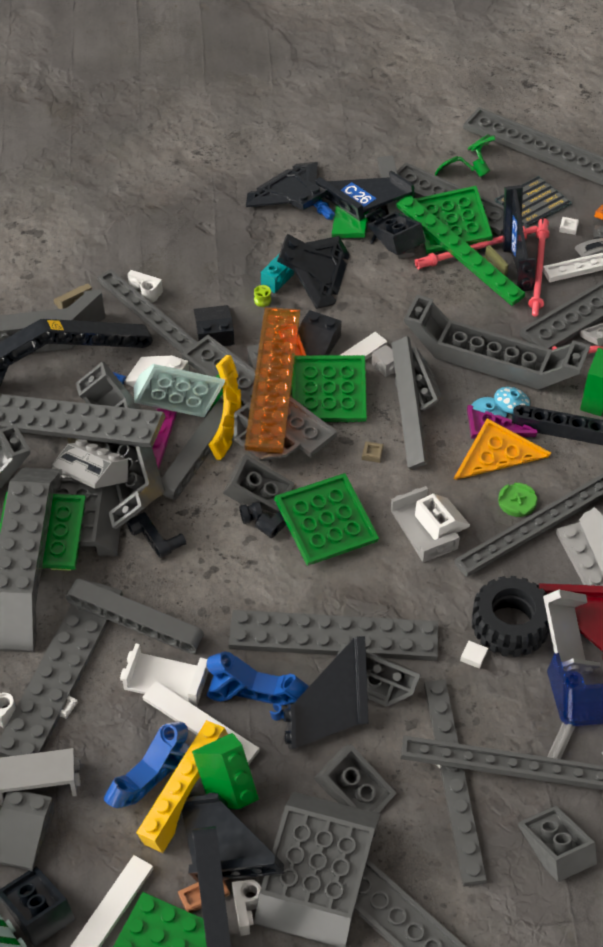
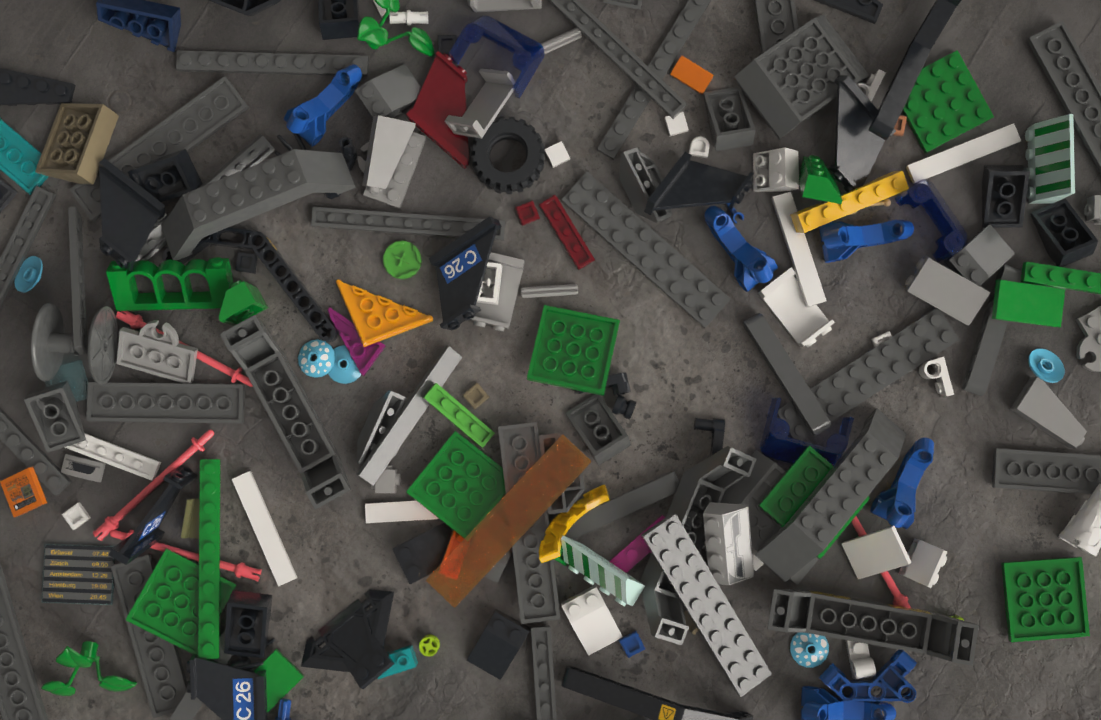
camera: 140 degrees left, 35 degrees up
(88, 835) = (953, 234): none -> clear blue windscreen
(89, 570) = (779, 446): none -> clear blue windscreen
(274, 770) = (776, 170): none -> white slope
(361, 744) = (699, 147): none -> white tile
(373, 425) = (458, 415): none -> bright green plate
(383, 553) = (547, 291): none -> light grey axle
(393, 750) = (677, 125): none -> white tile
(410, 603) = (566, 232): none -> dark red tile
(420, 801) = (691, 74): none -> orange slope
(441, 290) = (264, 528): none -> white tile
(455, 595) = (527, 213): none -> dark red tile
(462, 508) = (461, 272): none -> black piece

